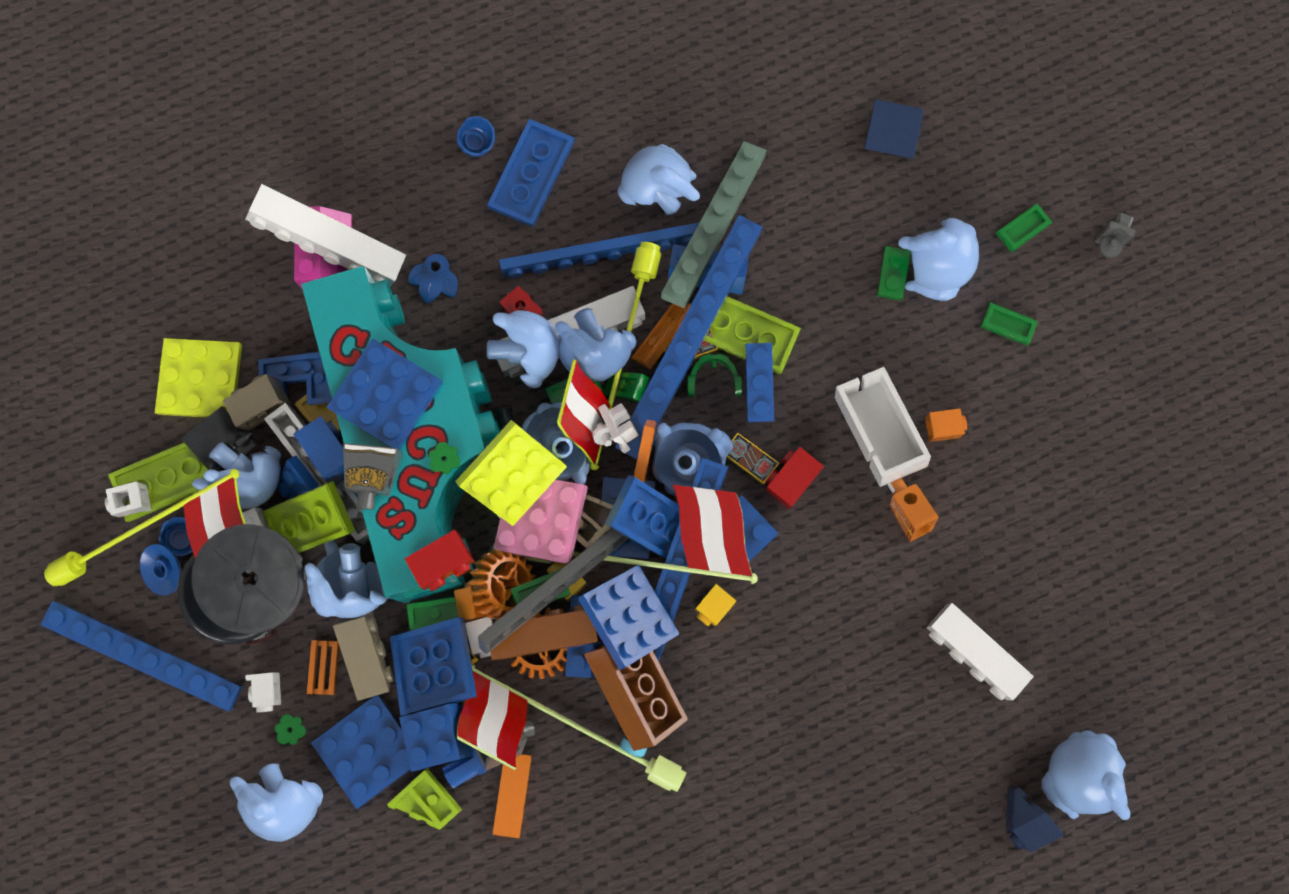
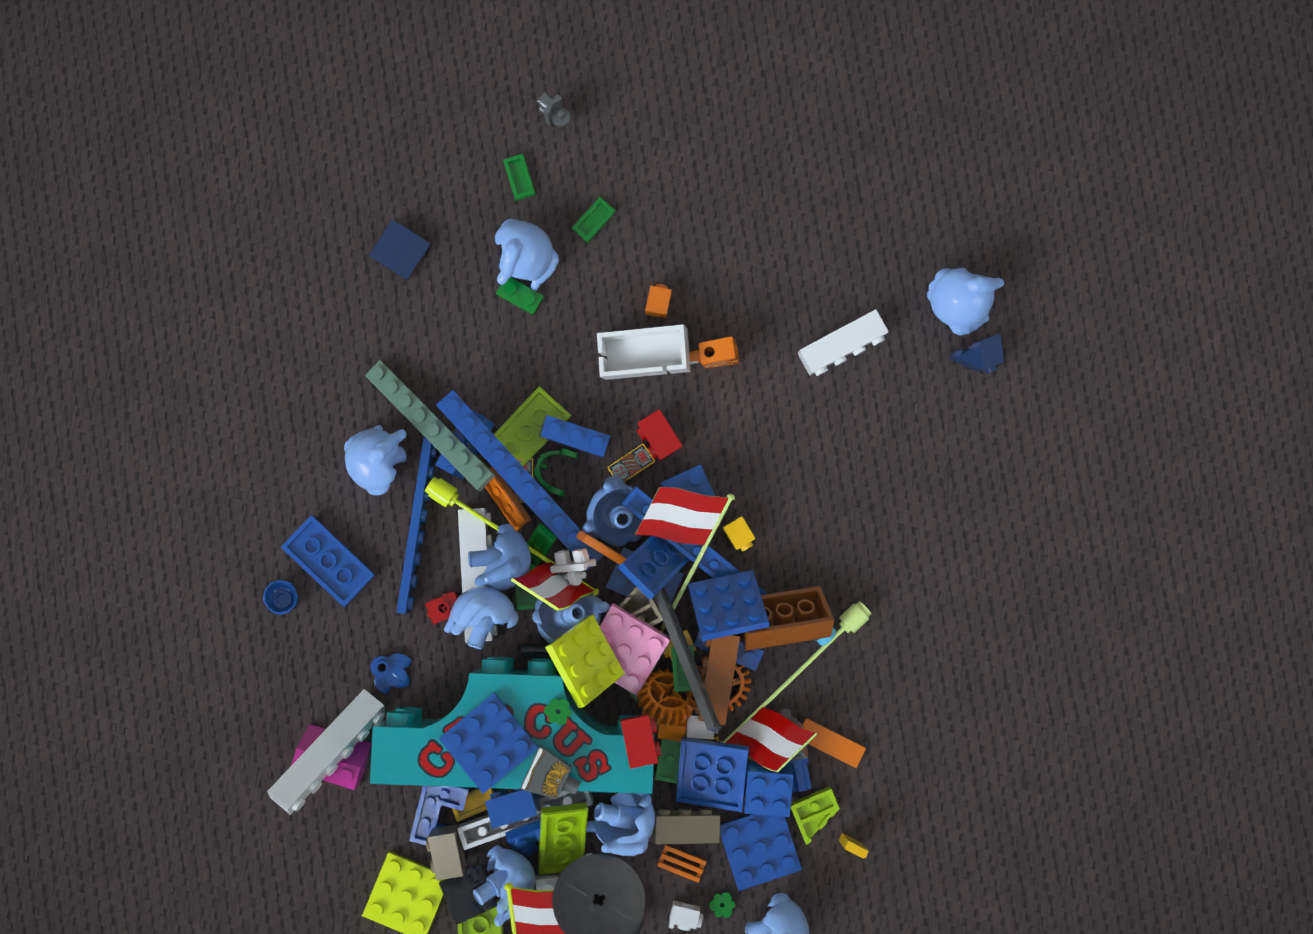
camera: 75 degrees left, 5 degrees up
(401, 860) = (853, 846): none -> yellow tile

